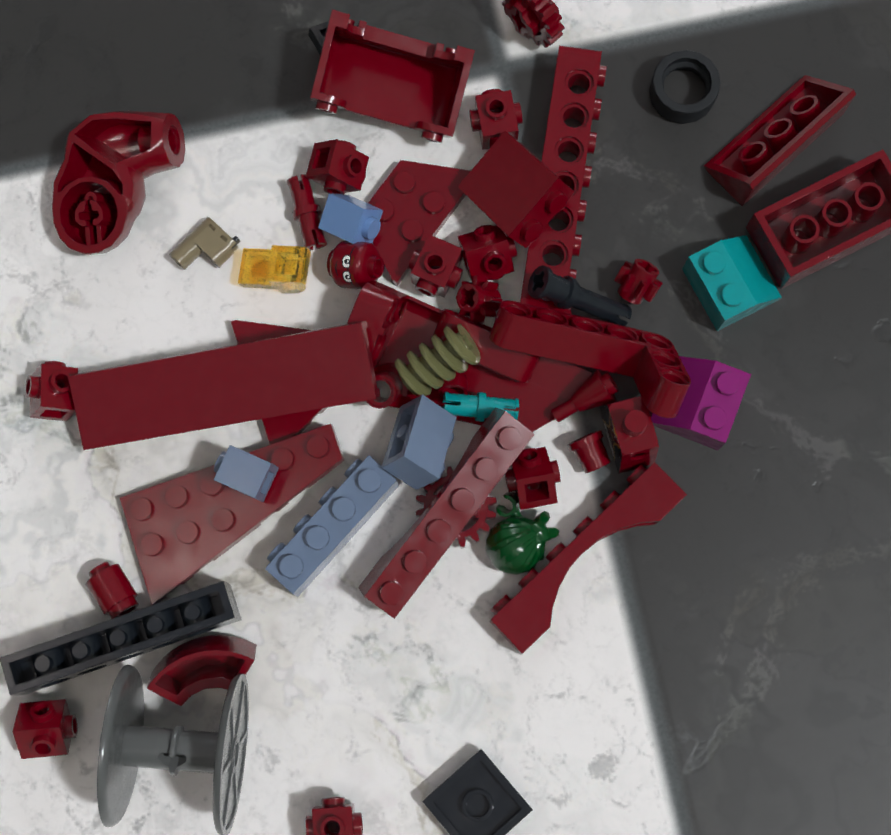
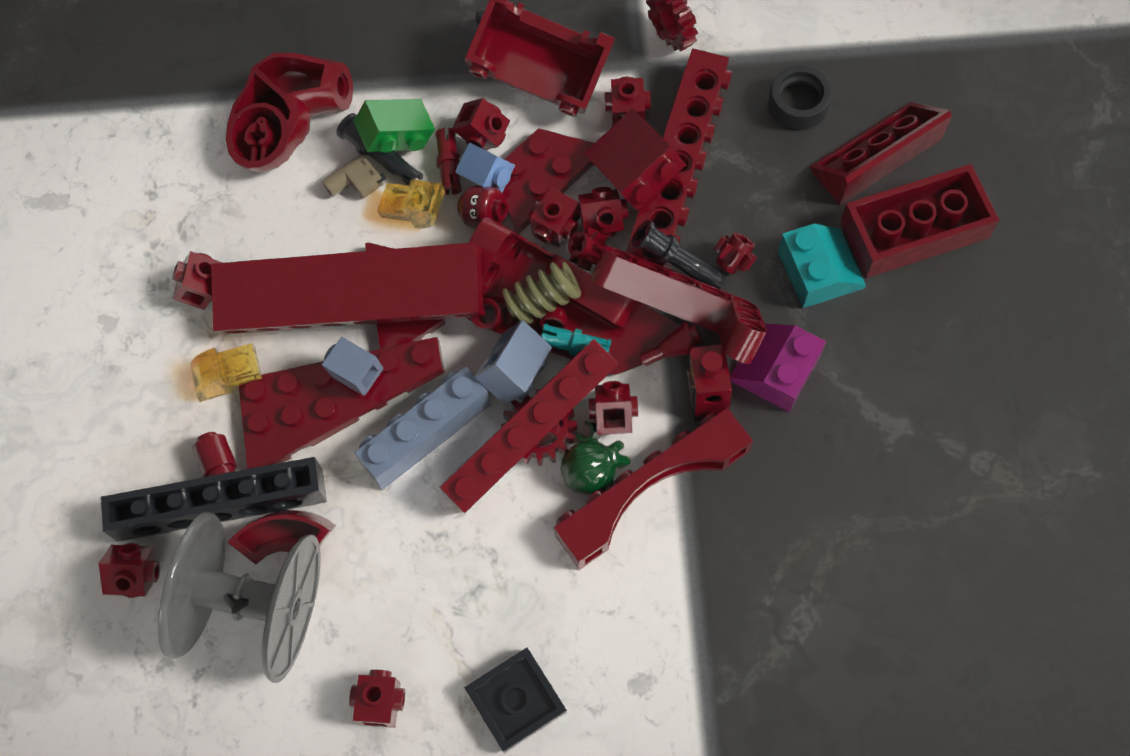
camera: 10 degrees right, 10 degrees down
(100, 492) = (218, 372): none -> clear yellow brick
(214, 202) = (390, 161): none -> black pin
(240, 181) = (394, 125): none -> green brick
(590, 451) = (670, 394): dark red piece -> none

